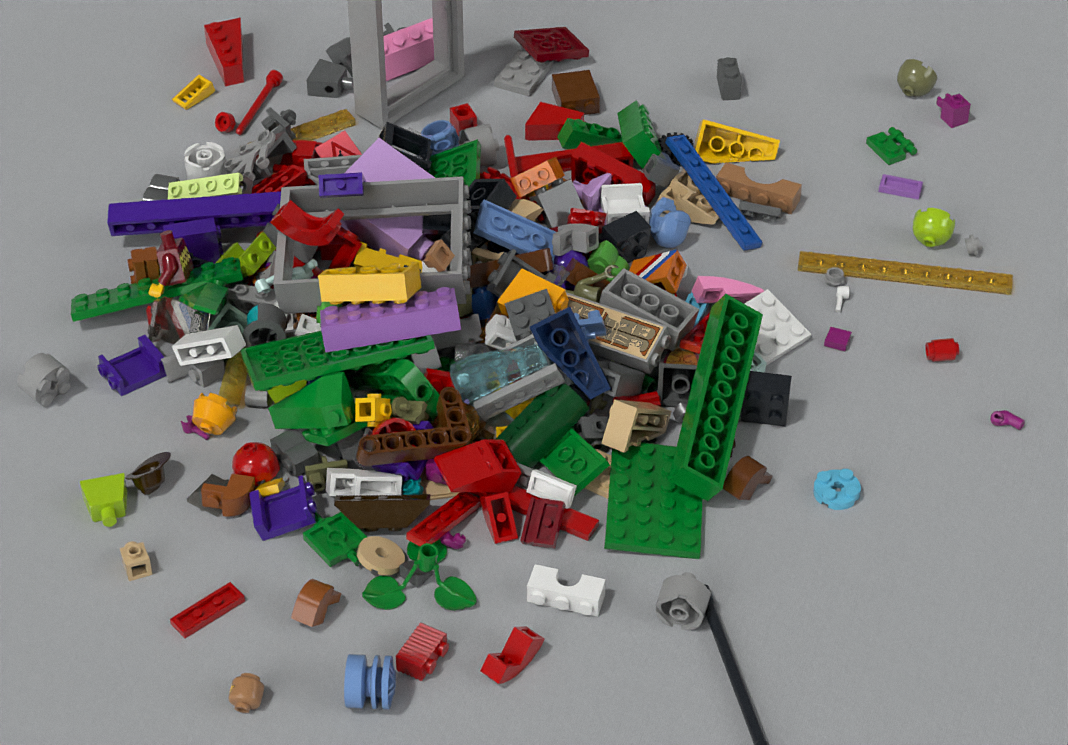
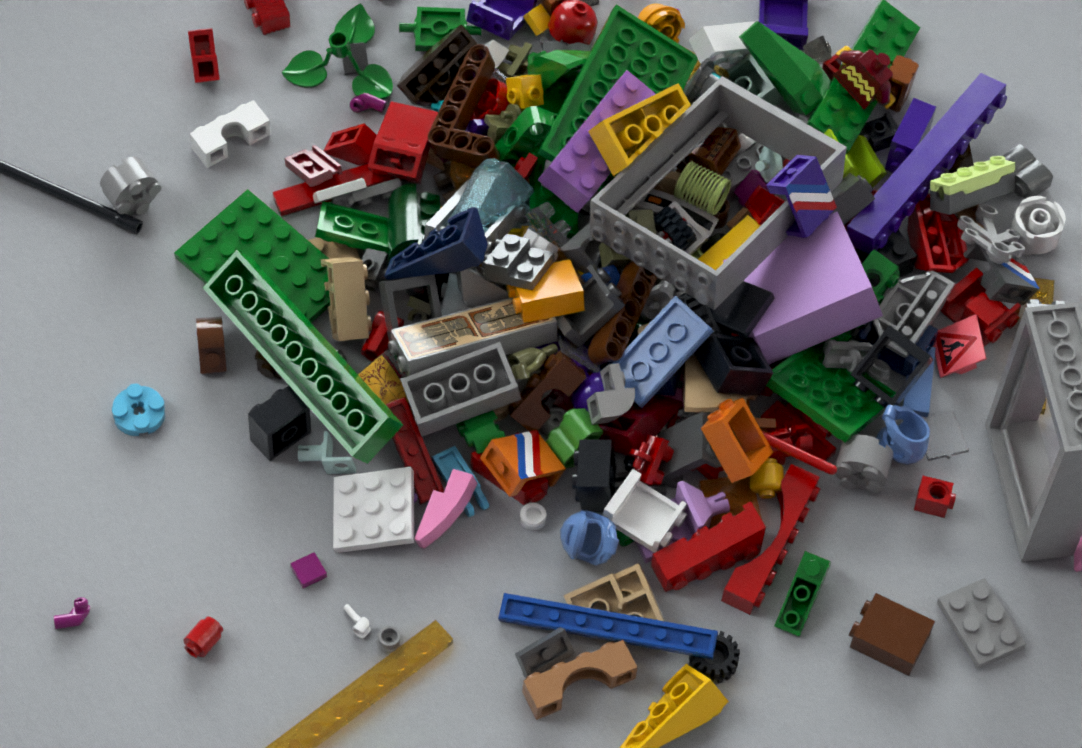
camera: 125 degrees right, 15 degrees up
(307, 228) = (761, 121): red arch -> none
(374, 546) = (389, 28): tan tile -> none
(438, 256) = (620, 184): medium nougat tile -> none
(444, 519) = (379, 86): red tile -> none
(548, 121) = (856, 575): red slope -> none
(551, 44) = (1000, 671): dark red plate -> none
(592, 326) = (472, 301): medium blue hips -> none
(638, 133) = (754, 620): green wedge -> none
(661, 169) = (664, 586): dark grey brick -> none

